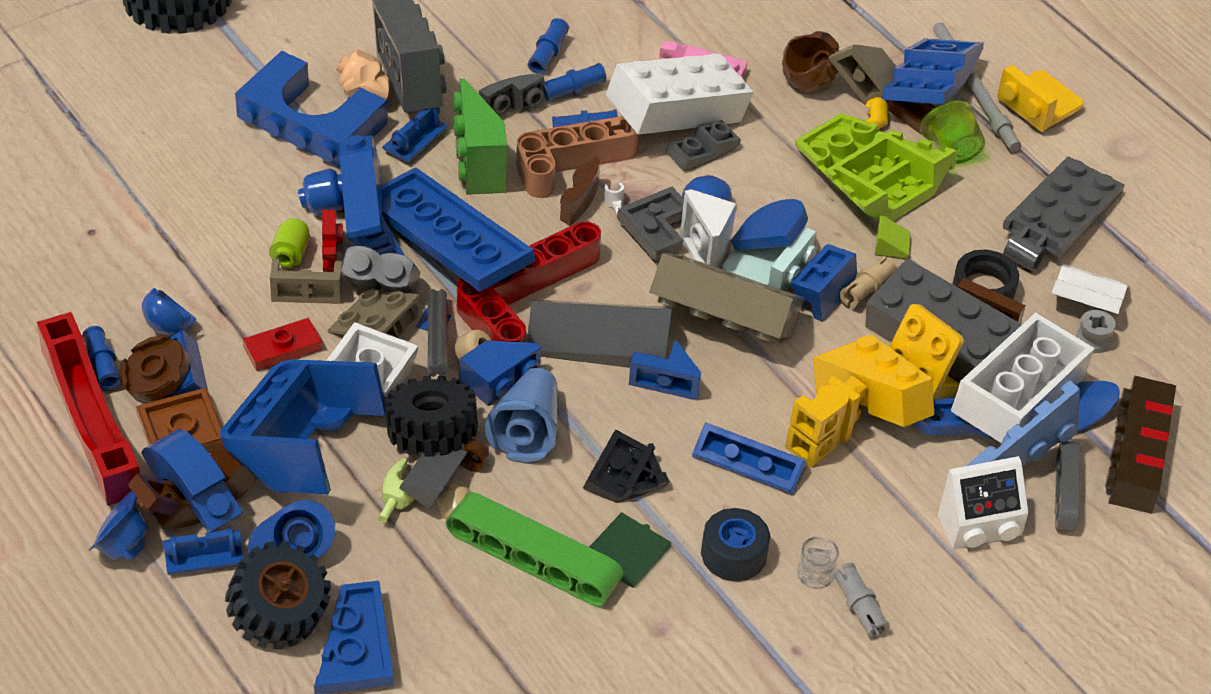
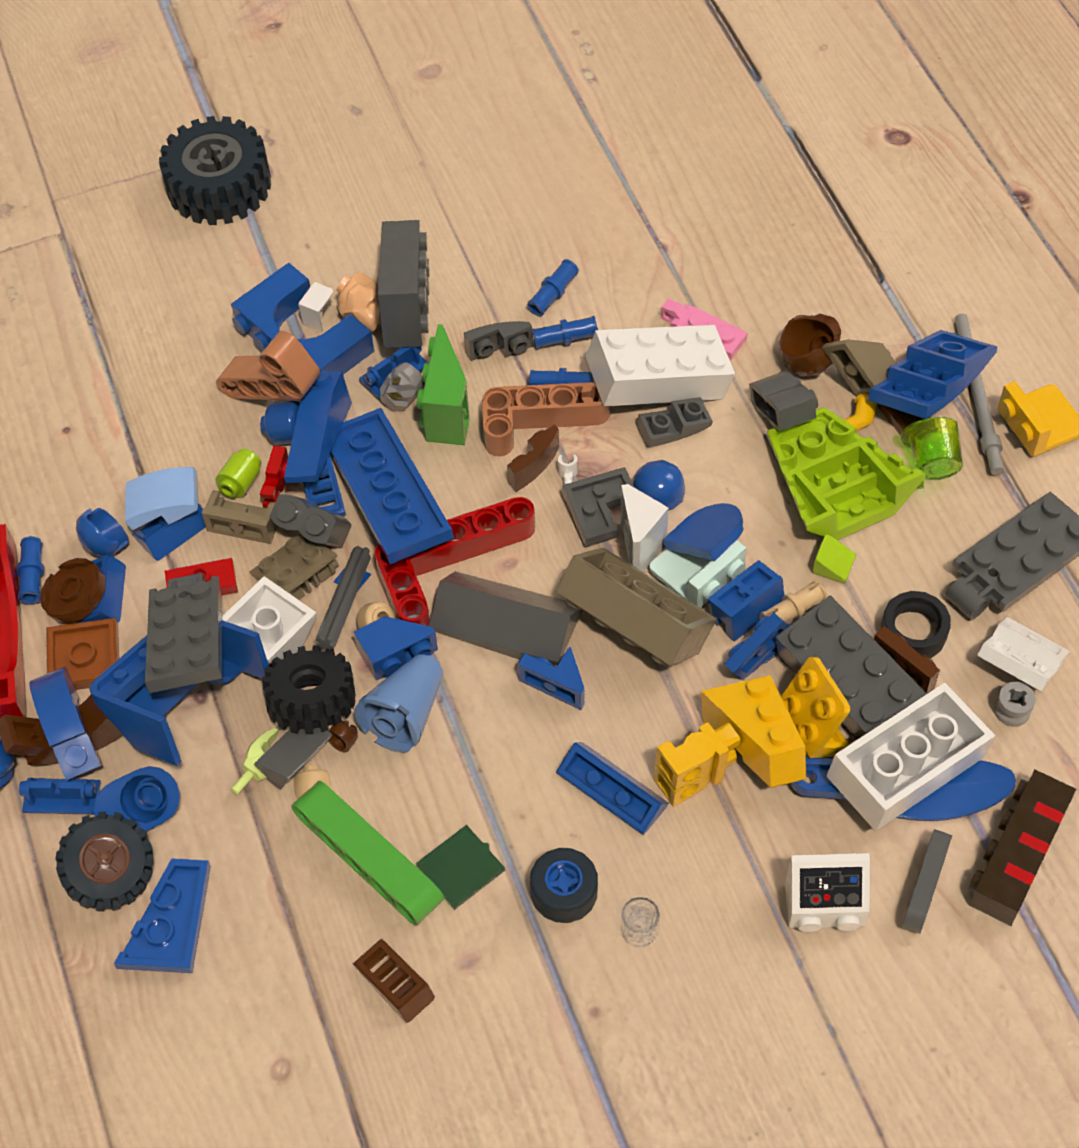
camera: 20 degrees right, 10 degrees up
(218, 268) = (161, 493): none -> light blue slope
(235, 302) = (162, 538): none -> blue slope
(300, 374) = (184, 633): none -> dark grey hinge
(317, 87) = (312, 305): none -> white slope
(320, 141) = (279, 372): none -> nougat beam
(432, 145) = (401, 387): none -> light grey rock
(614, 671) = (411, 997): none -> reddish brown slope
(625, 470) = (484, 778): black slope -> none
(802, 111) = (783, 400): none -> dark grey brick
(848, 322) = (758, 648): none -> blue wing
(861, 600) = (672, 972): light grey pin -> none
(1050, 426) = (898, 831): medium blue wing -> none

